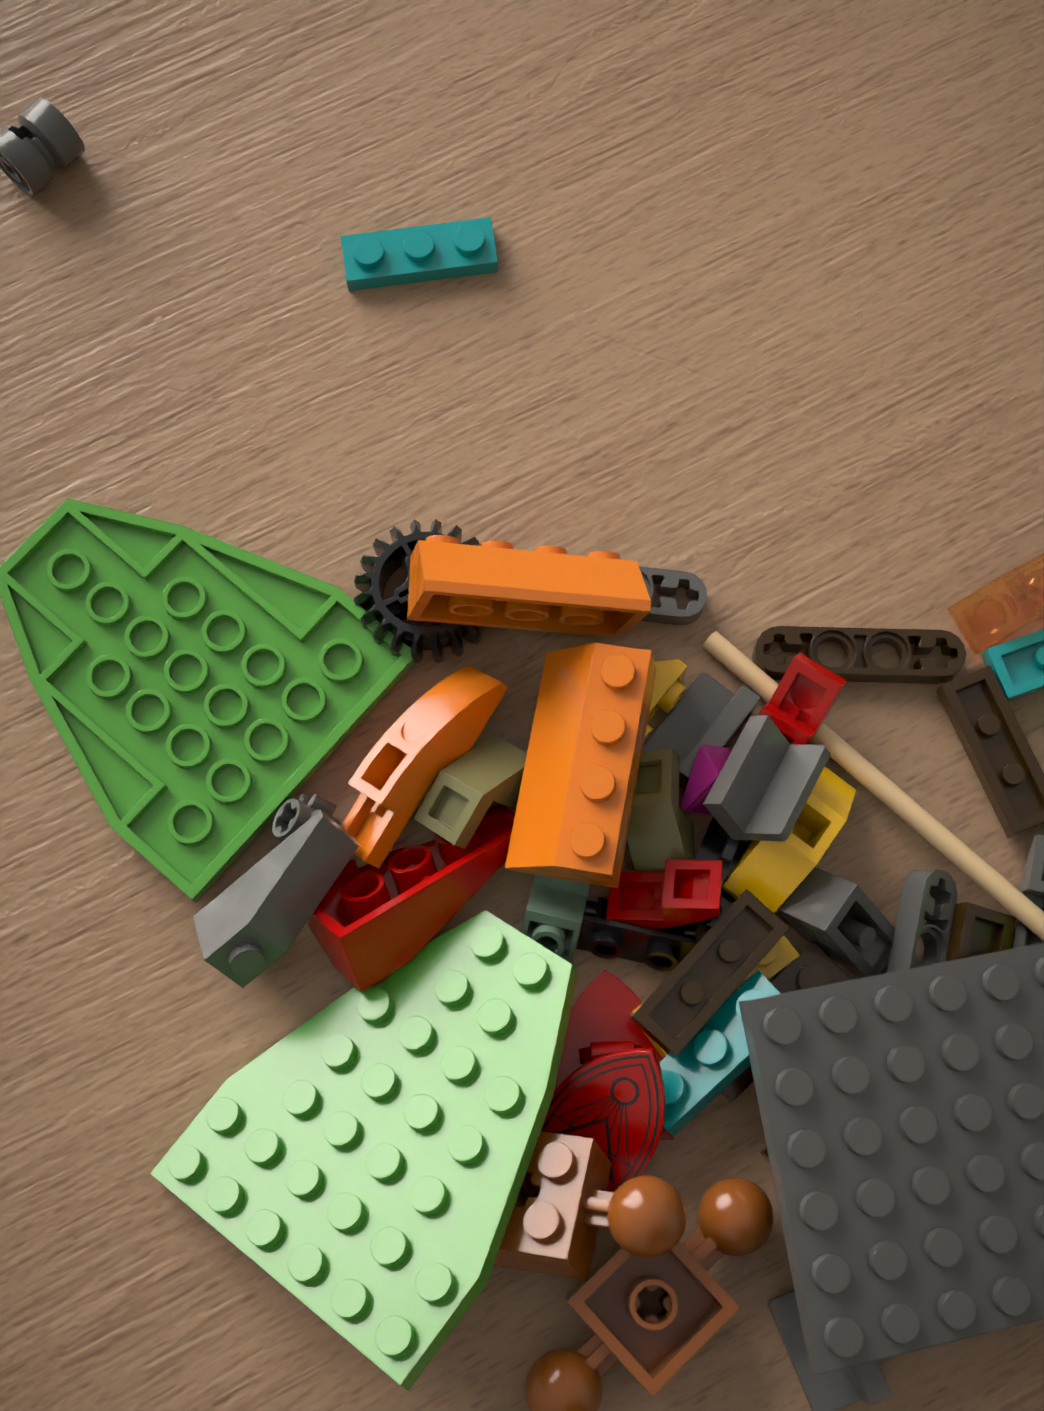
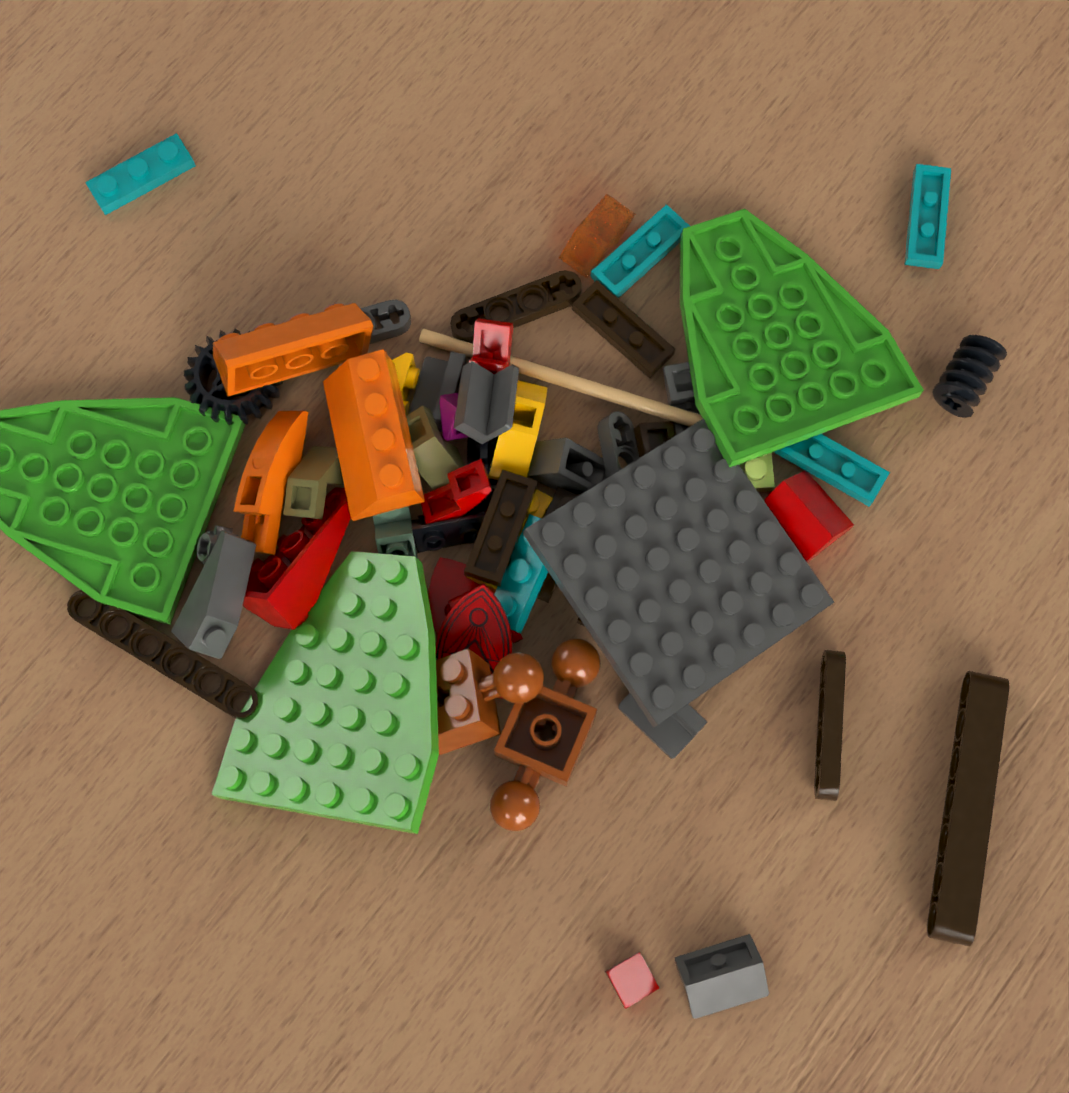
camera: 20 degrees left, 0 degrees up
(163, 946) = (162, 656): none -> dark brown beam

